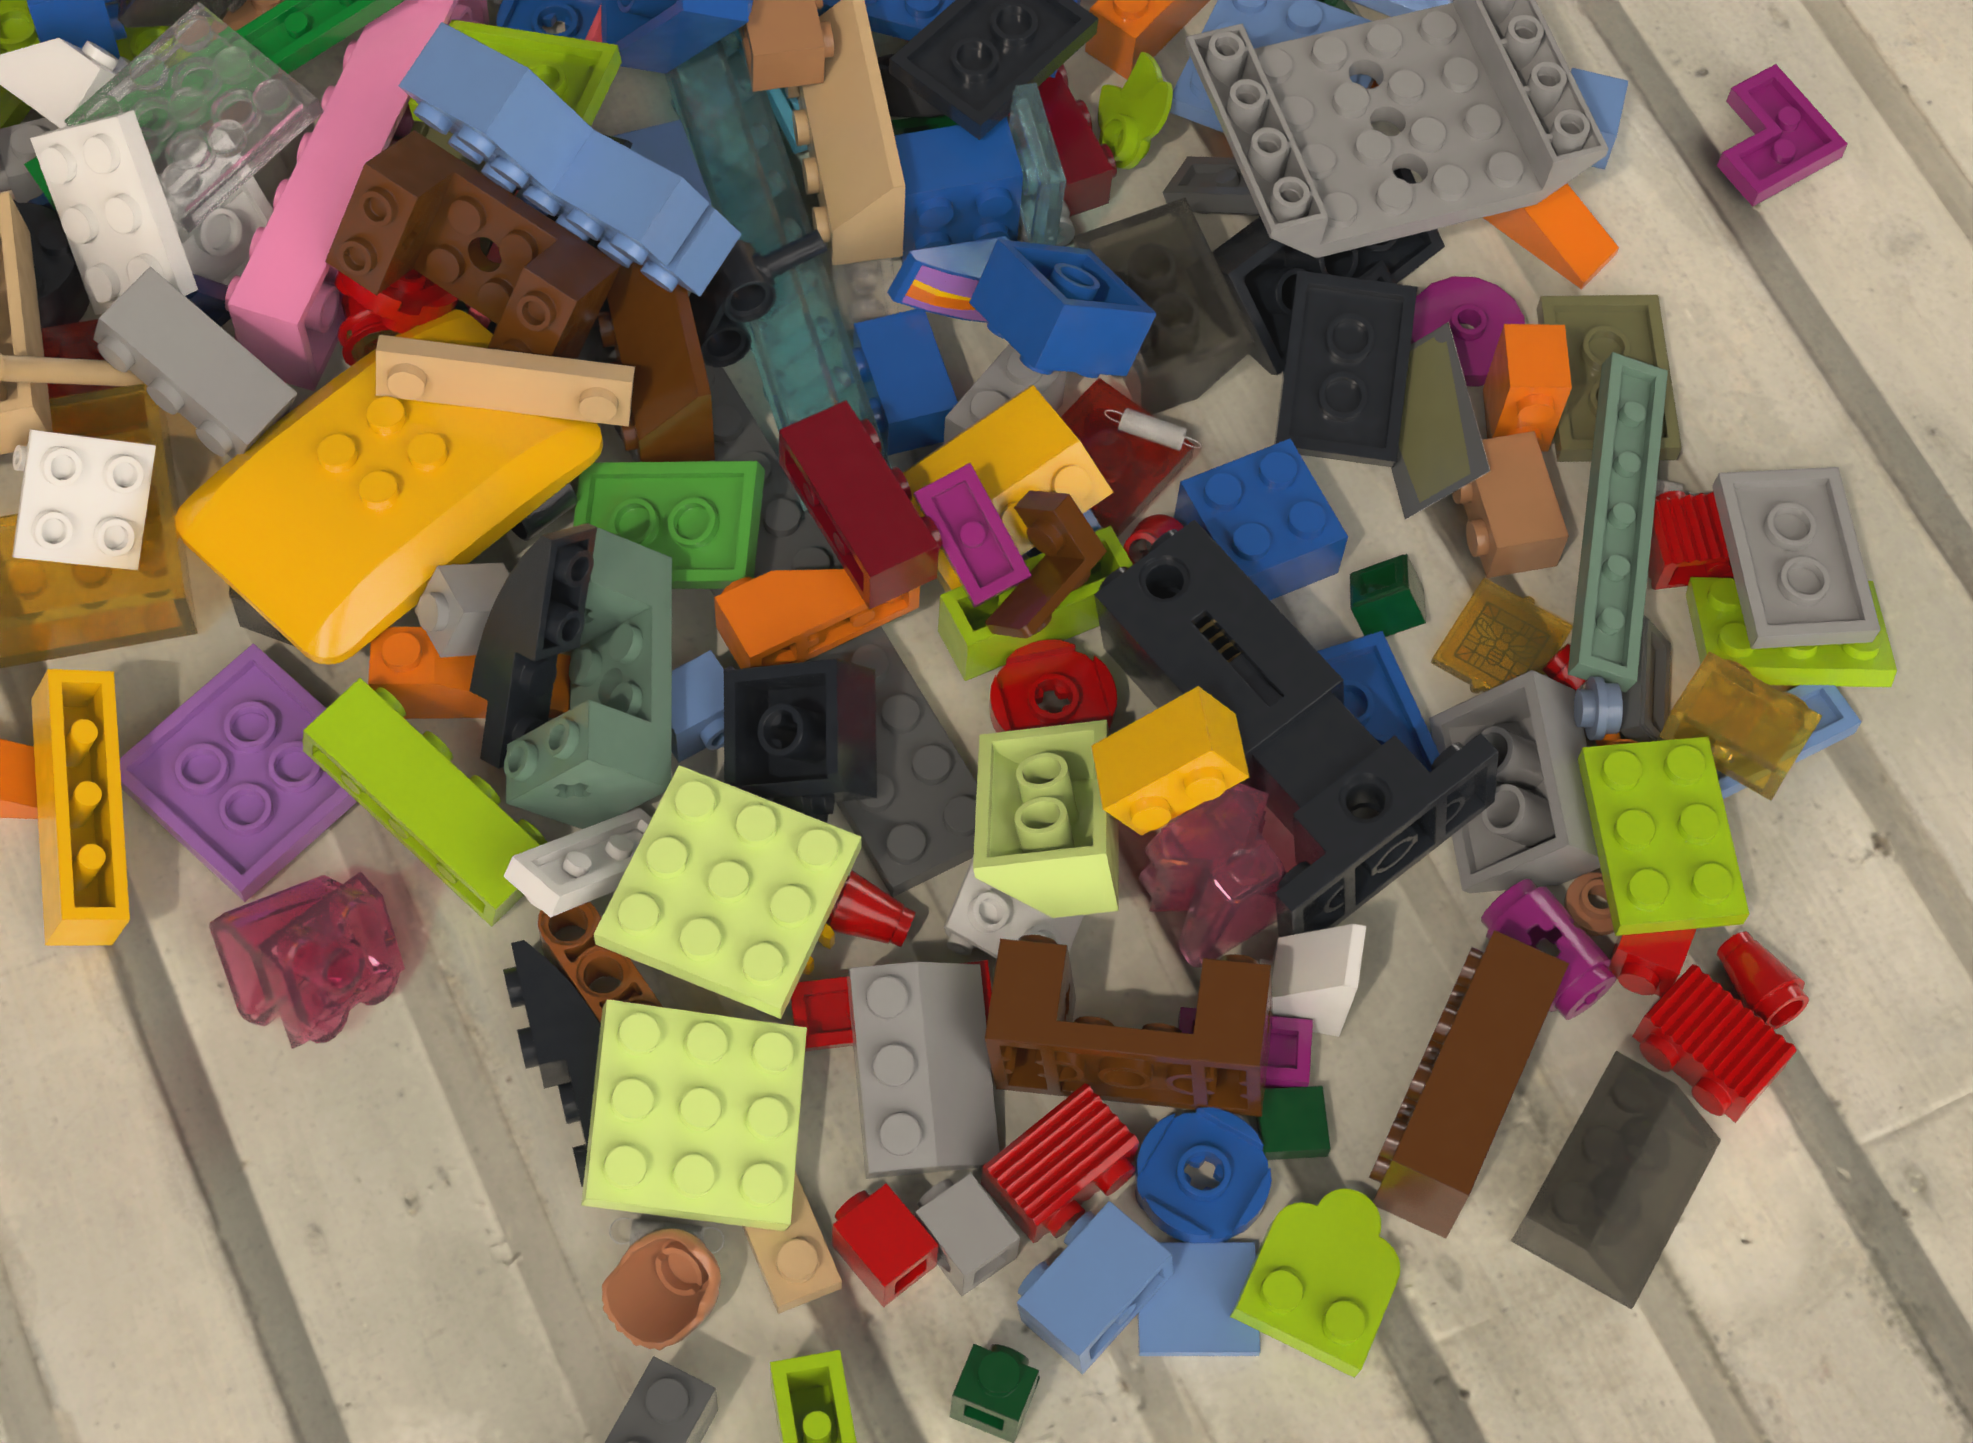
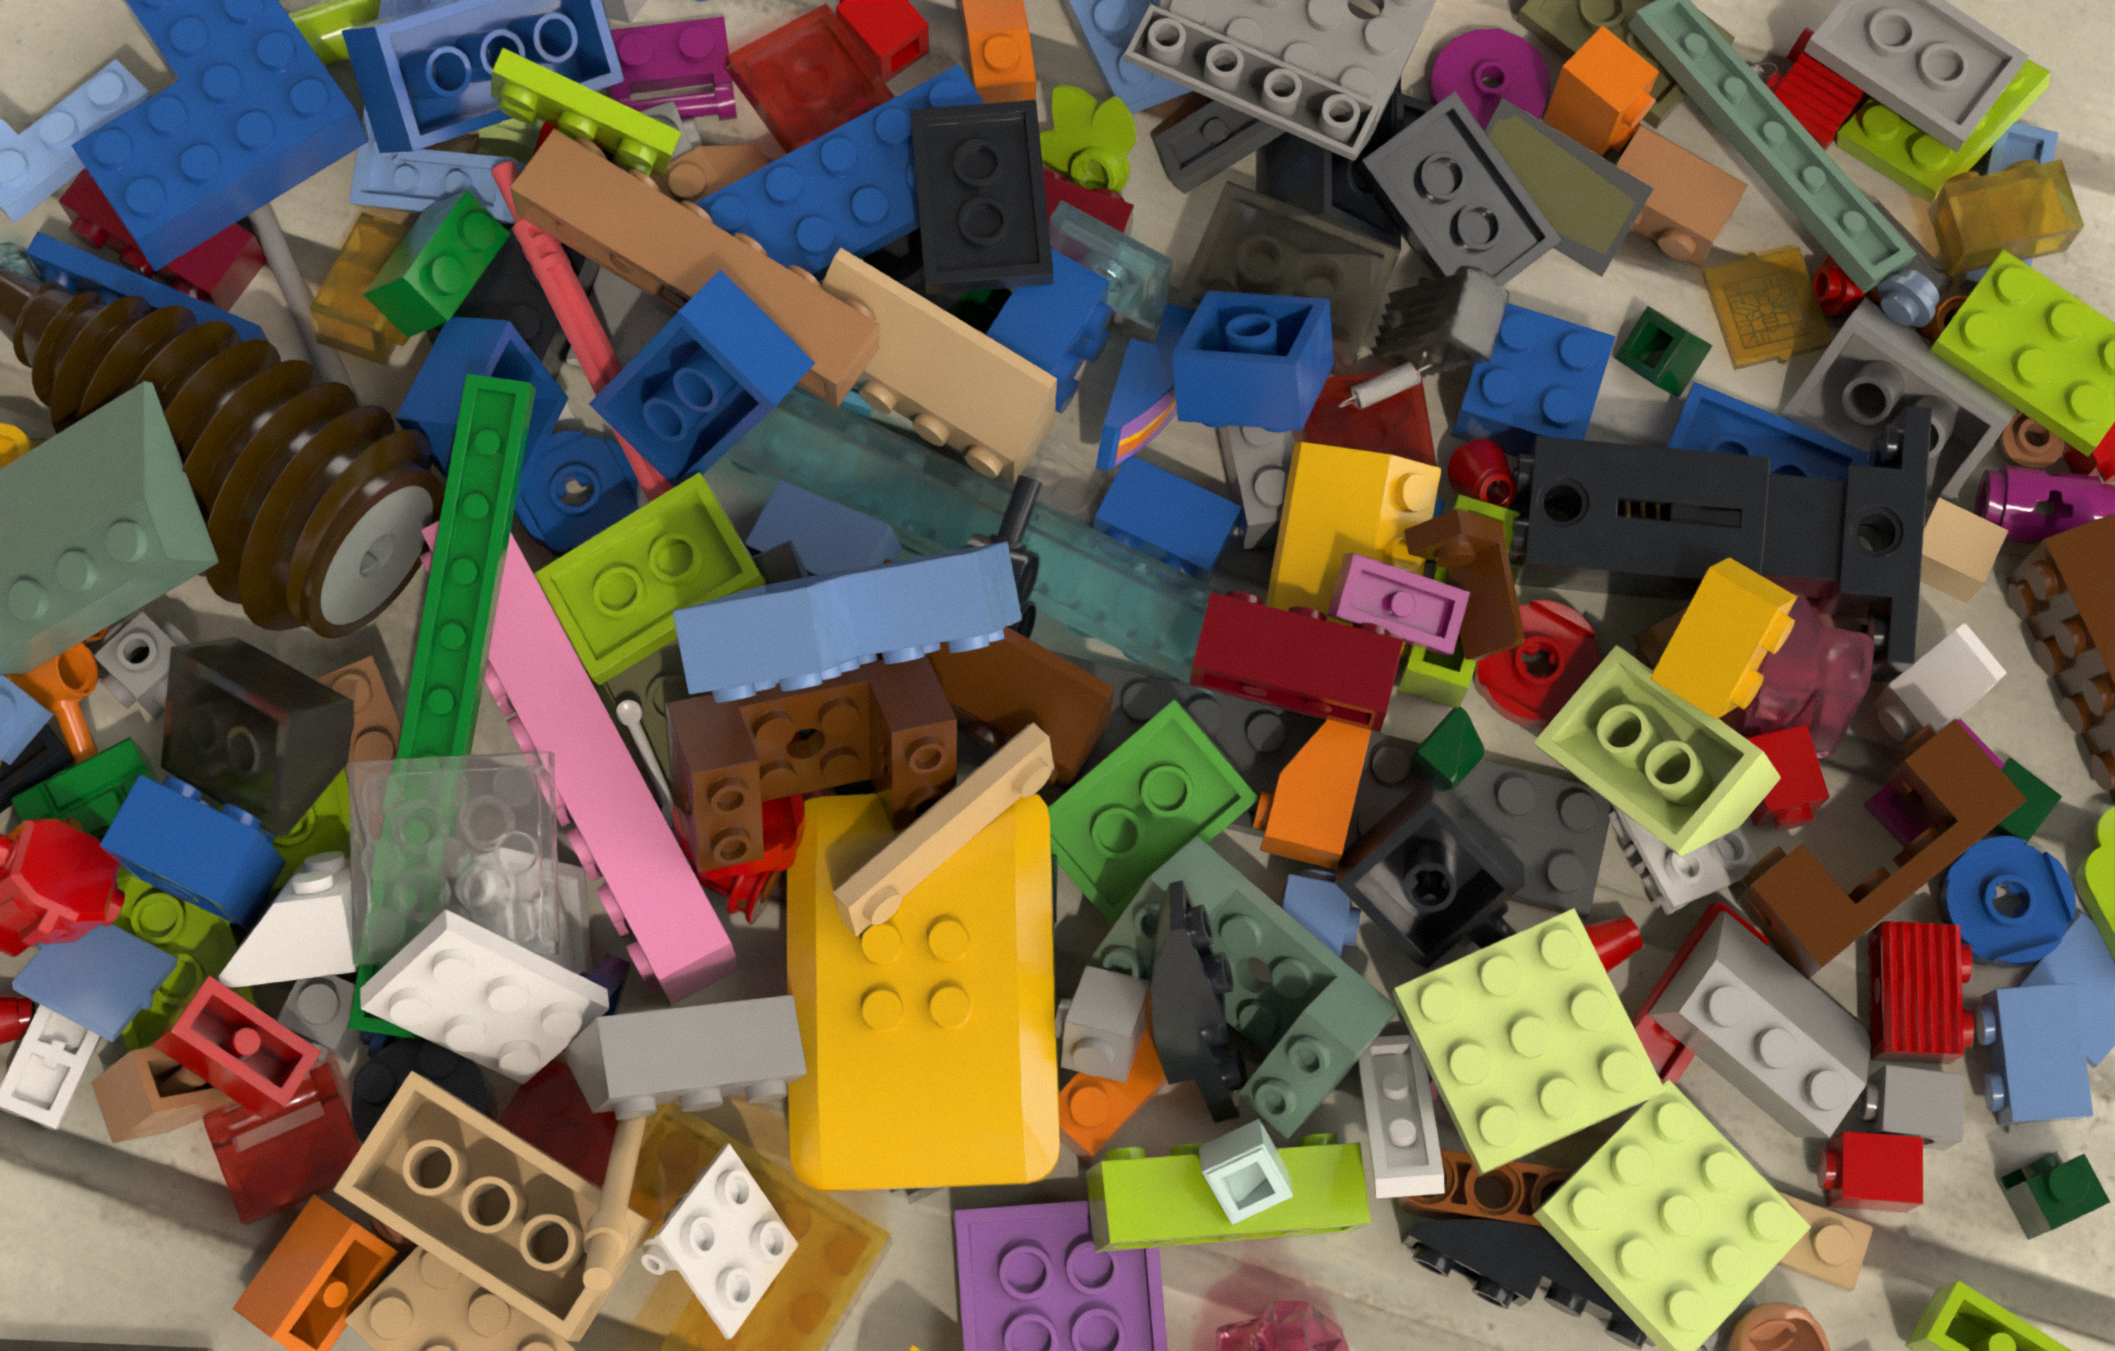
camera: 45 degrees left, 10 degrees up
(443, 779) = (1245, 1171): none -> light aqua slope
(911, 680) = (1449, 750): none -> dark green slope
(1134, 939) = (1801, 784): none -> red brick
(1238, 421) = (1442, 322): none -> clear smoke brick
(1443, 910) = (1958, 549): none -> tan brick

